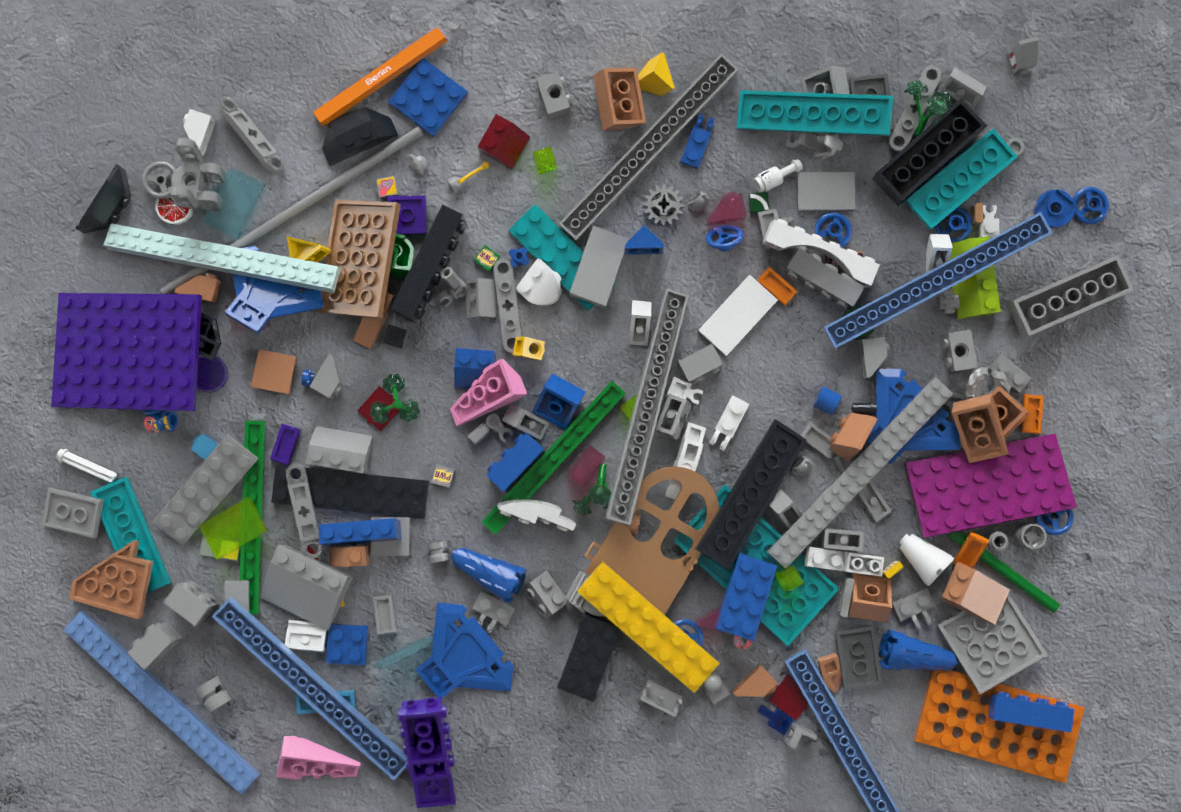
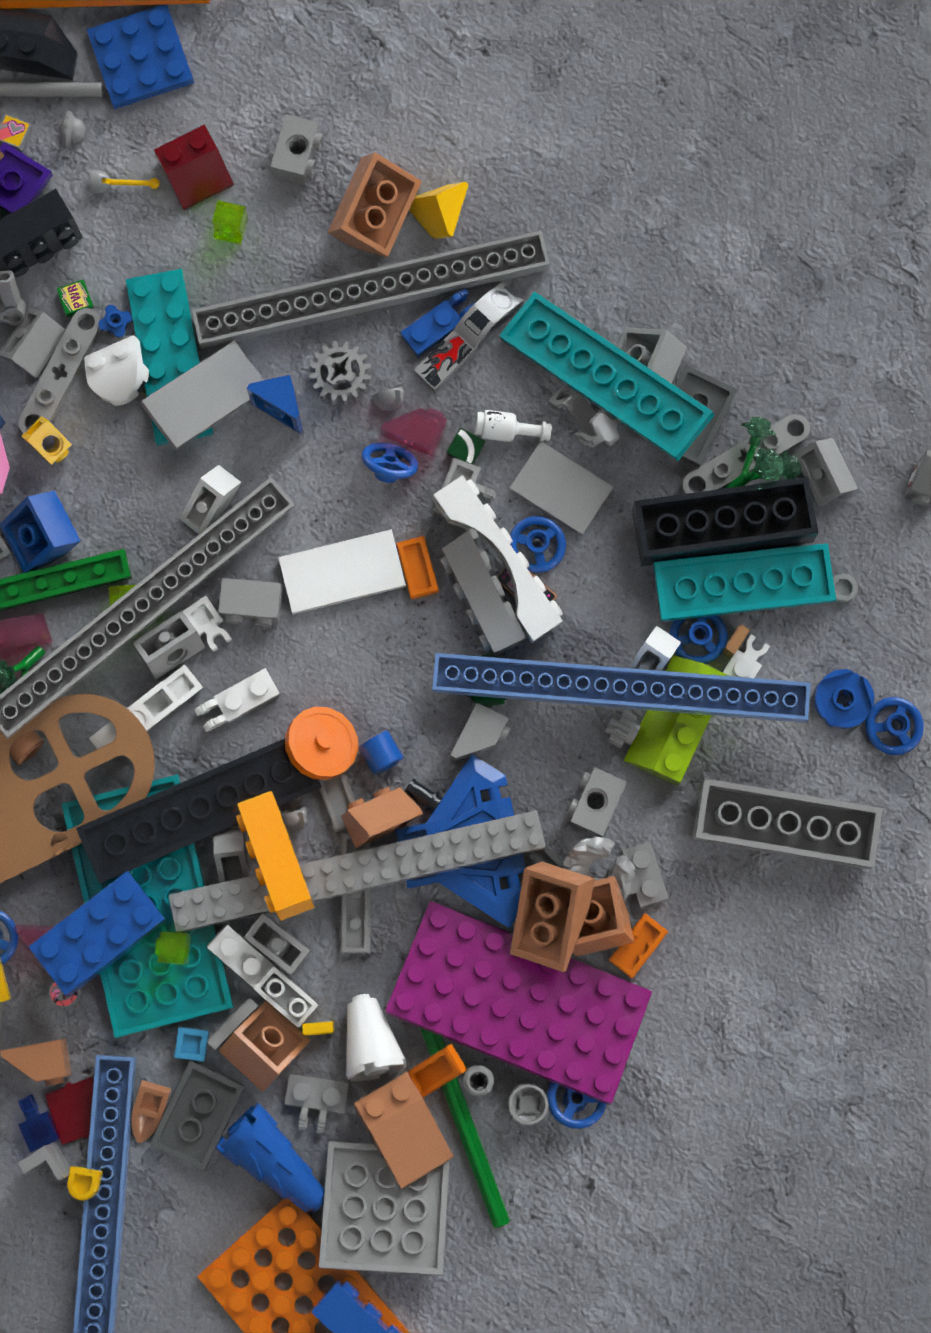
camera: 30 degrees right, 5 degrees down
(718, 140) = (466, 336): none -> piece
(791, 416) = (321, 743): none -> orange wheel
(815, 493) = (275, 856): none -> light orange brick
(825, 732) = (83, 1182): none -> yellow tile
(830, 622) = (191, 1044): none -> dark azure plate

